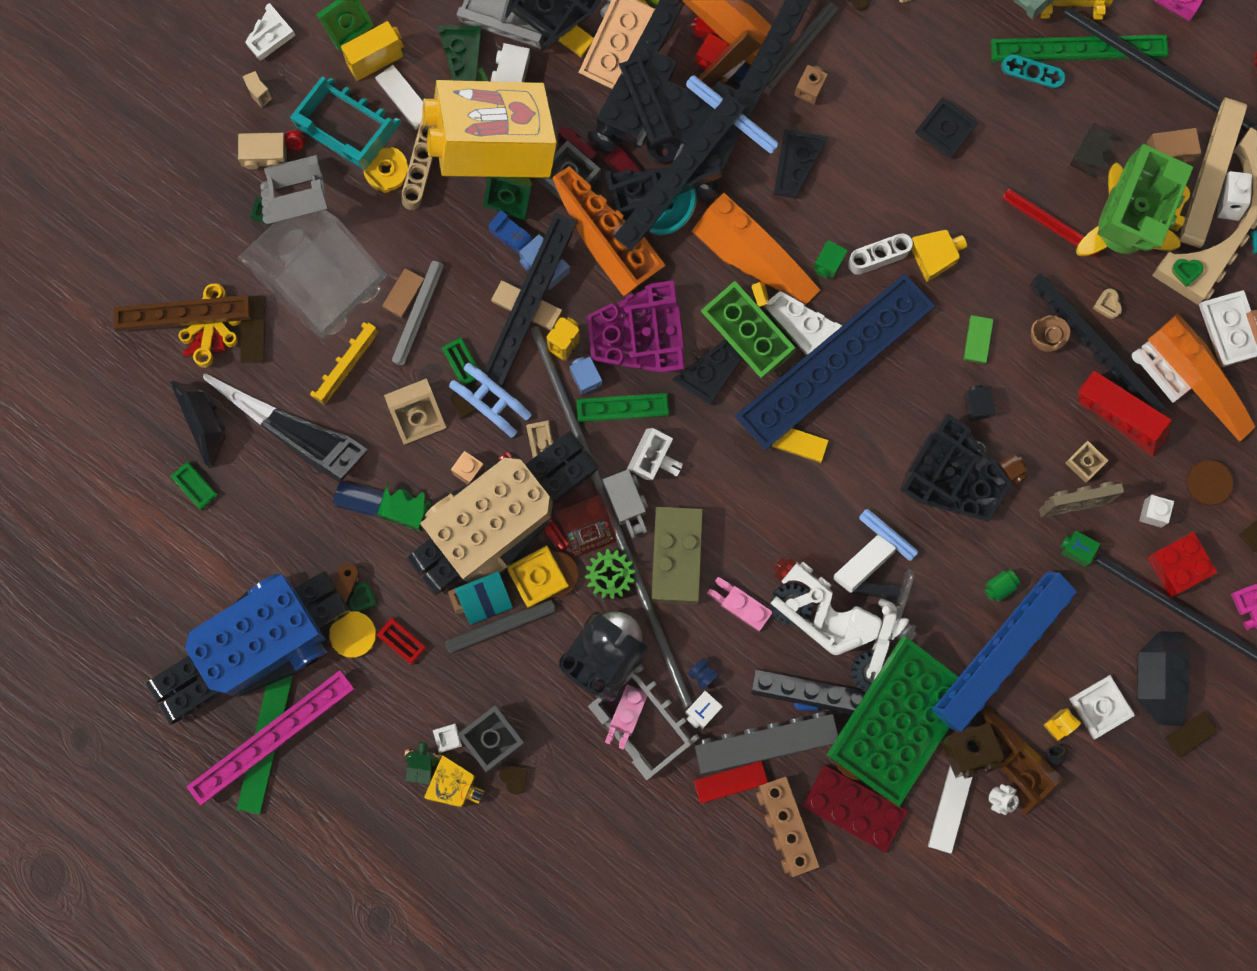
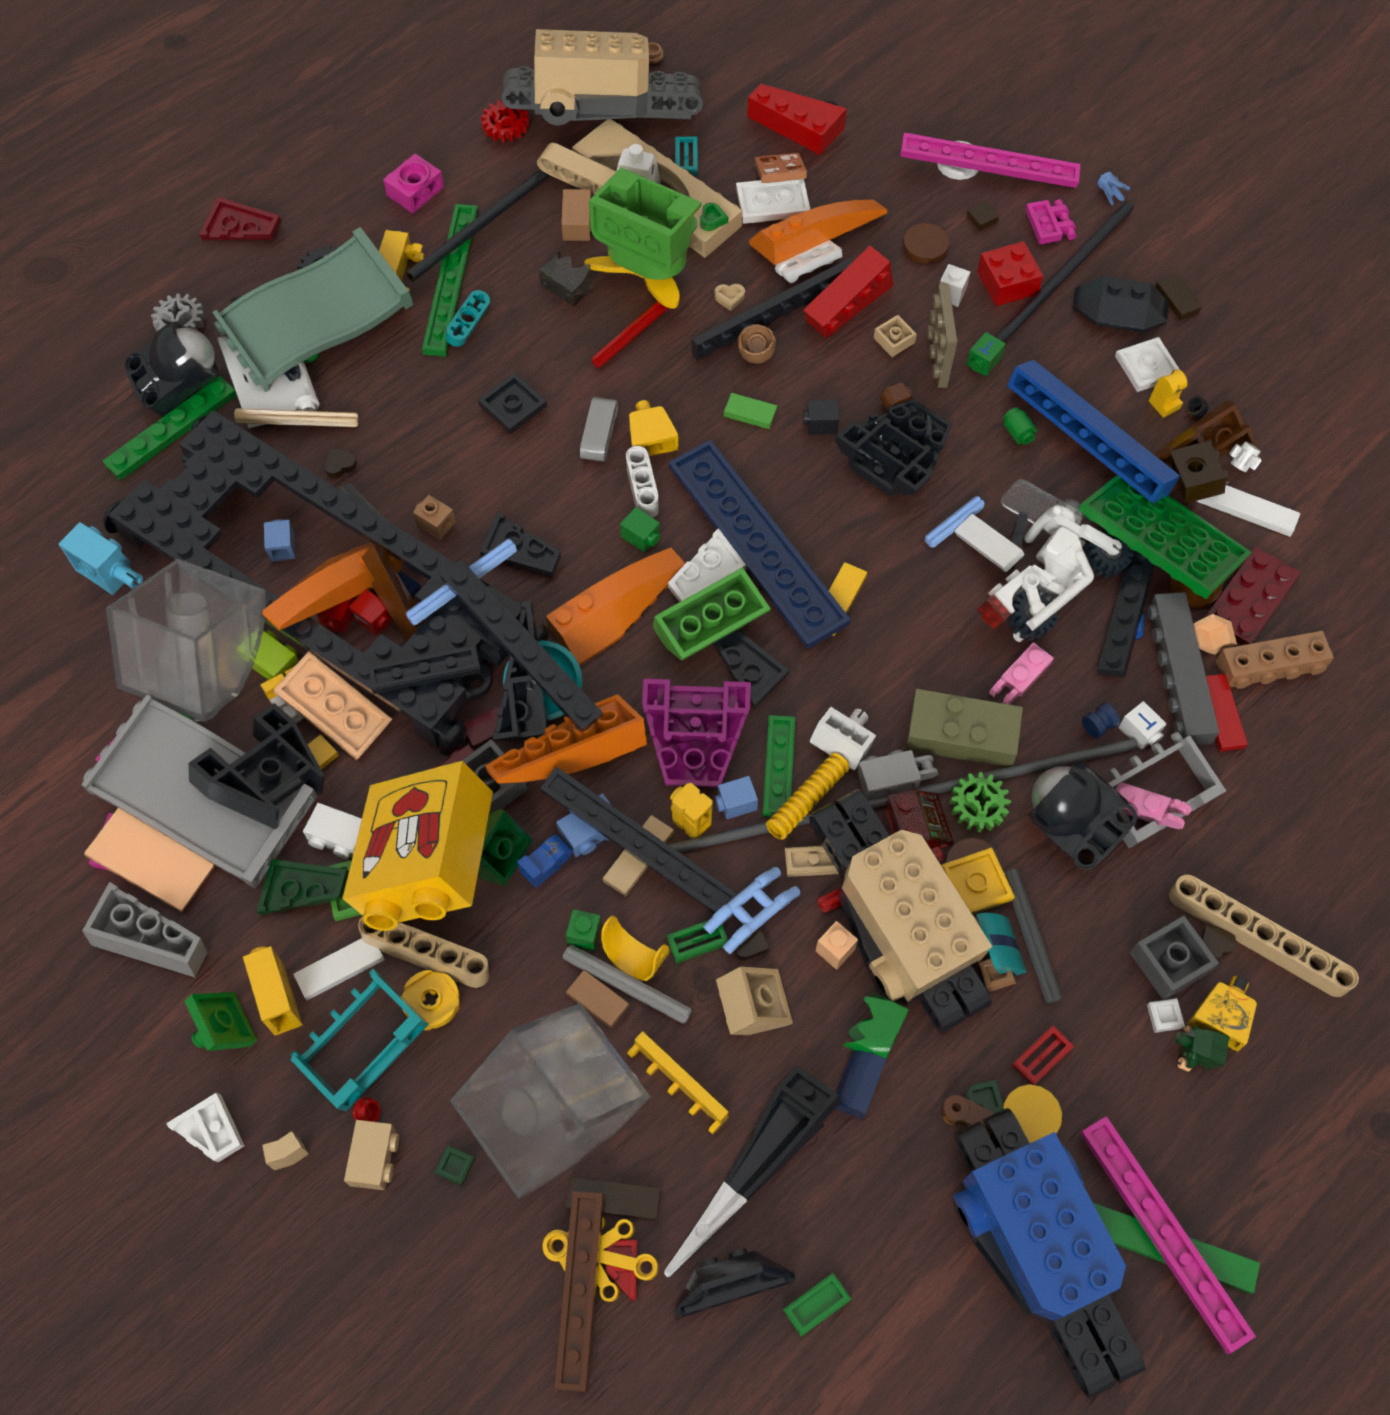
camera: 80 degrees left, 15 degrees down
(296, 203) = (475, 1101): light grey hinge -> none
(443, 311) = (628, 953): none -> yellow piece
(453, 272) = (584, 930): none -> green brick
(514, 823) = (1276, 936): none -> tan beam
(594, 432) = (807, 796): none -> yellow piece
(760, 294) = (671, 596): yellow tile -> none
(802, 769) = (1214, 634): none -> light nougat panel
(931, 207) = (598, 429): none -> light grey beam

